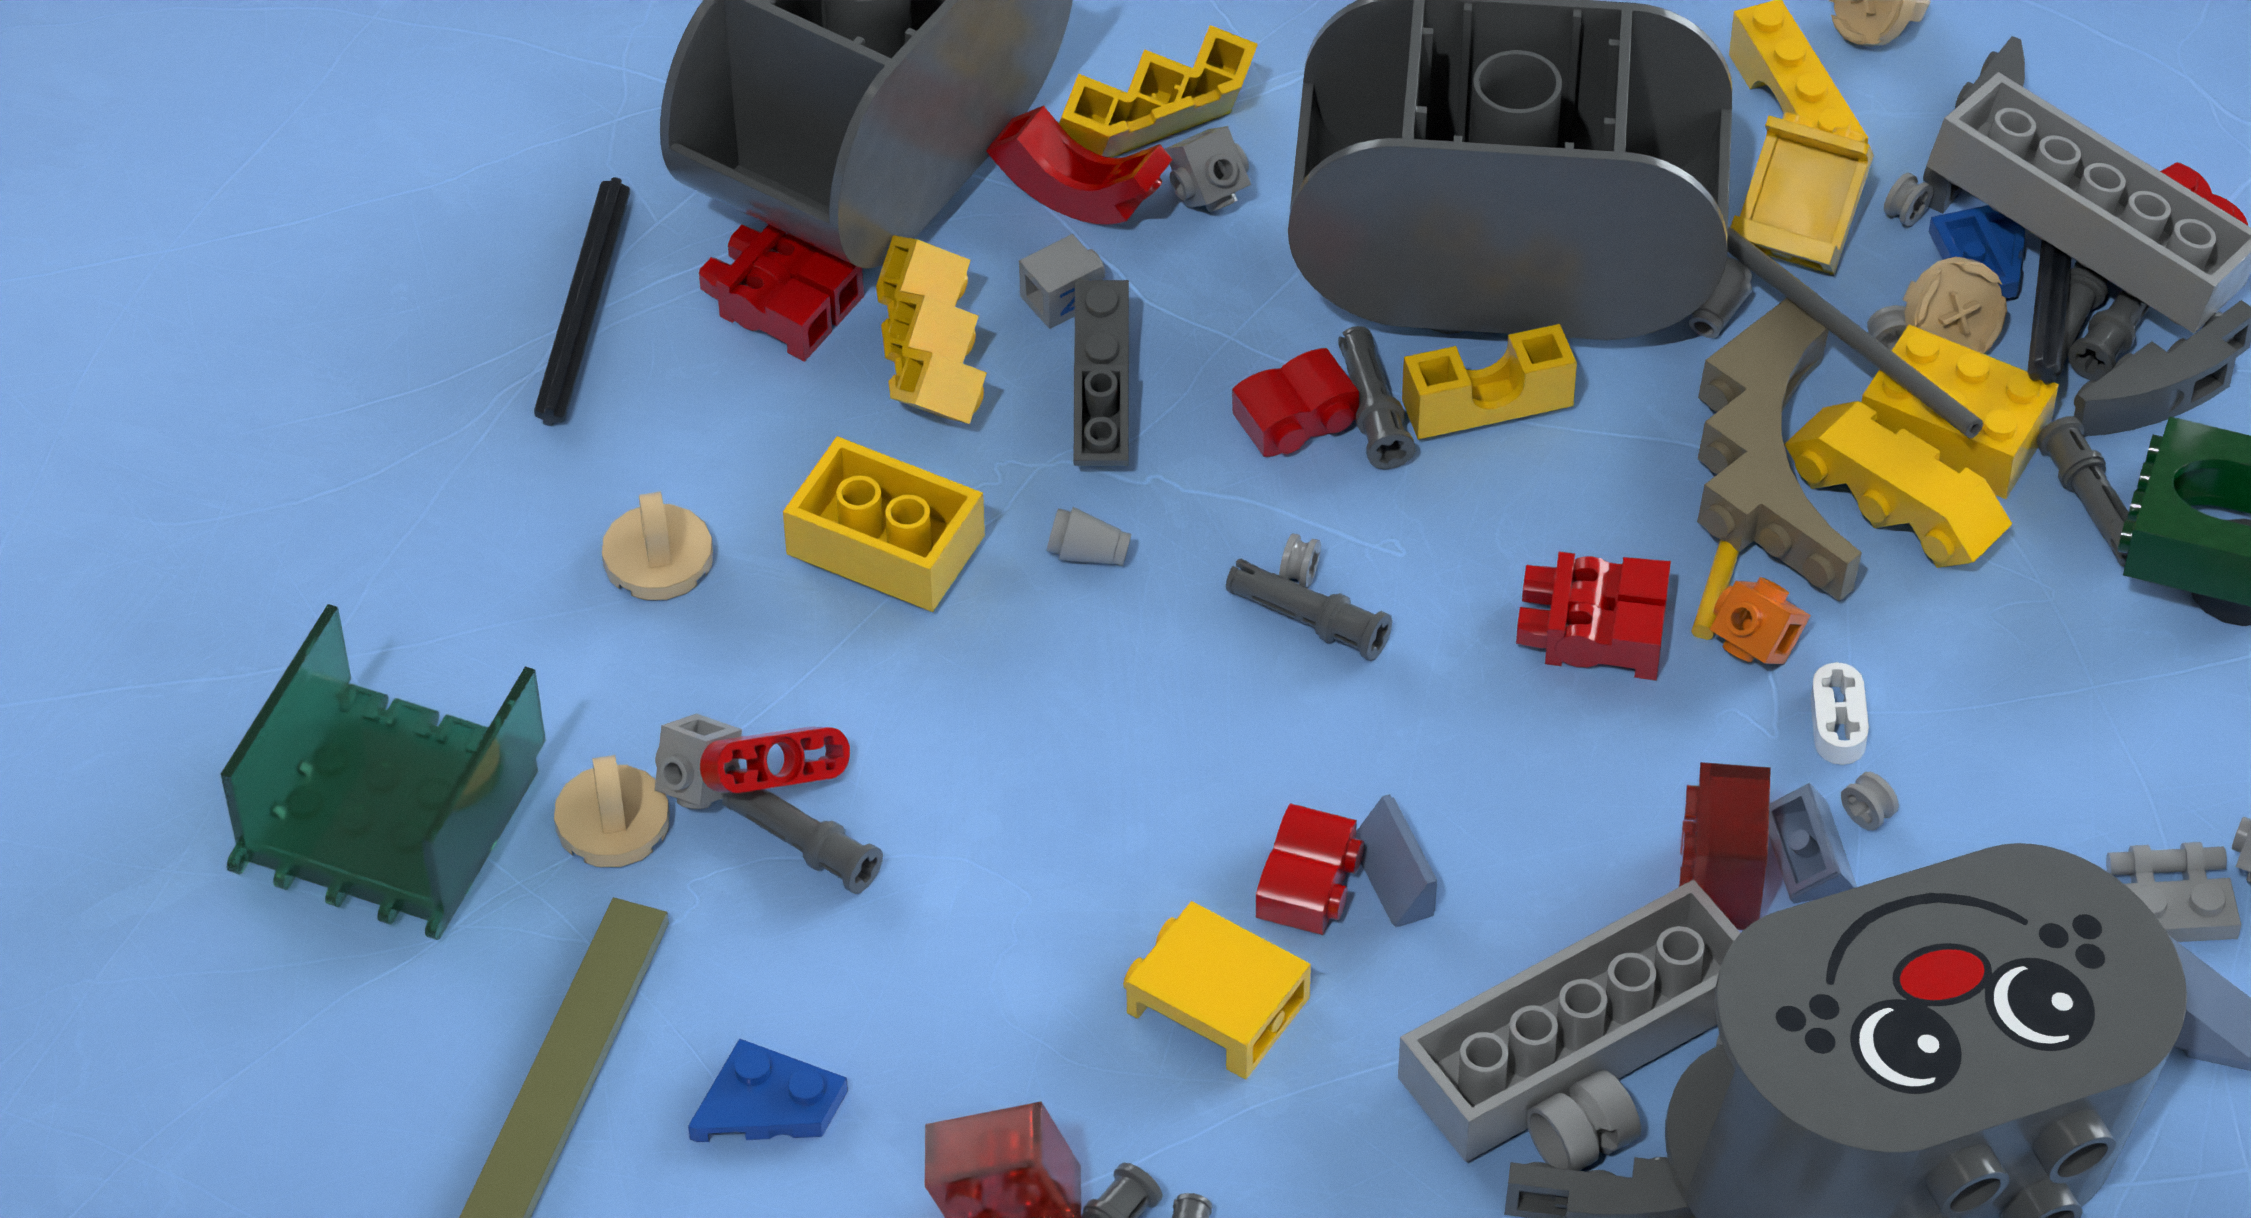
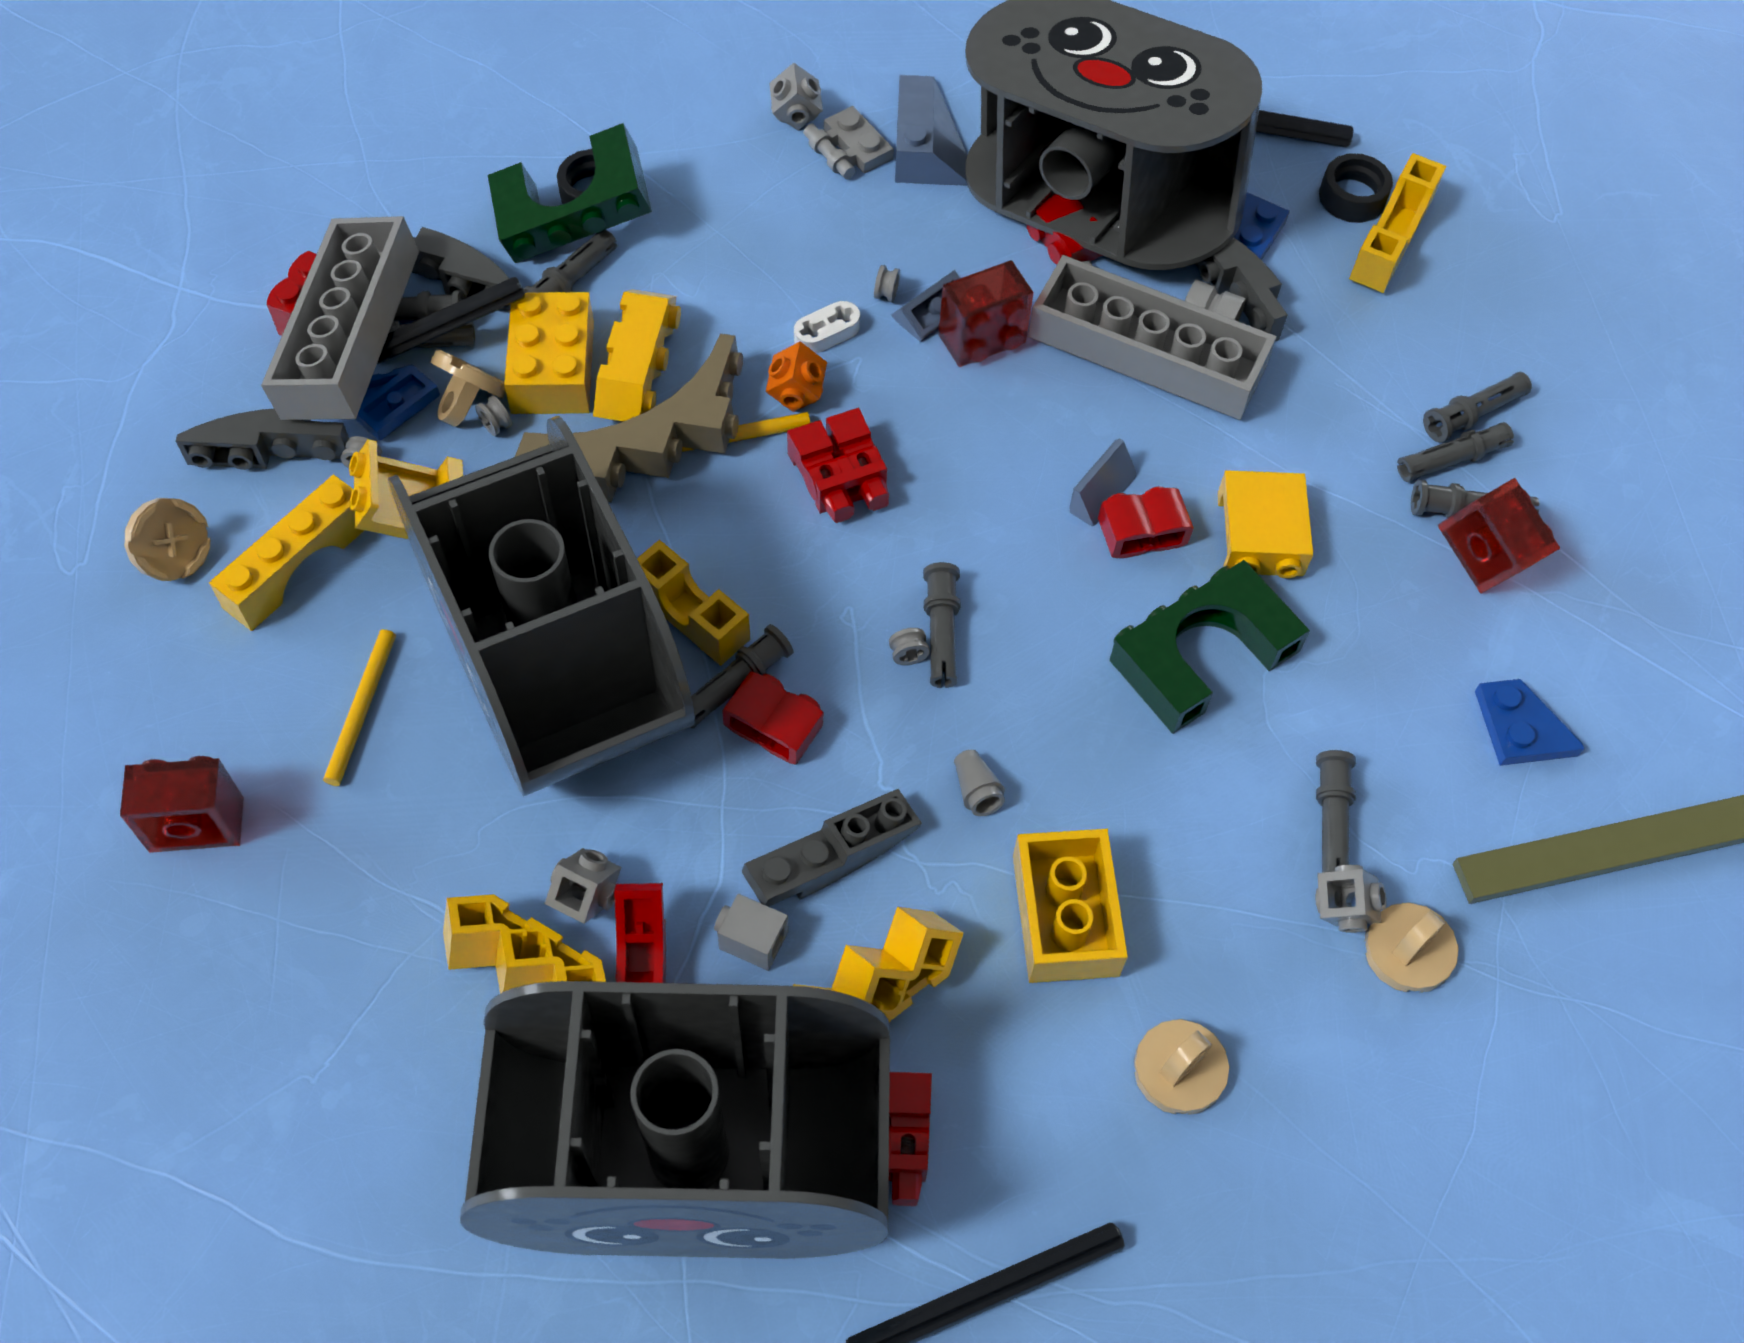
camera: 125 degrees left, 10 degrees up
(376, 794) = (1526, 1085): clear green windscreen -> none
(755, 751) = (1316, 846): red beam -> none
(1122, 772) = (1232, 601): none -> dark green arch
(1853, 335) = (553, 376): dark grey piece -> none

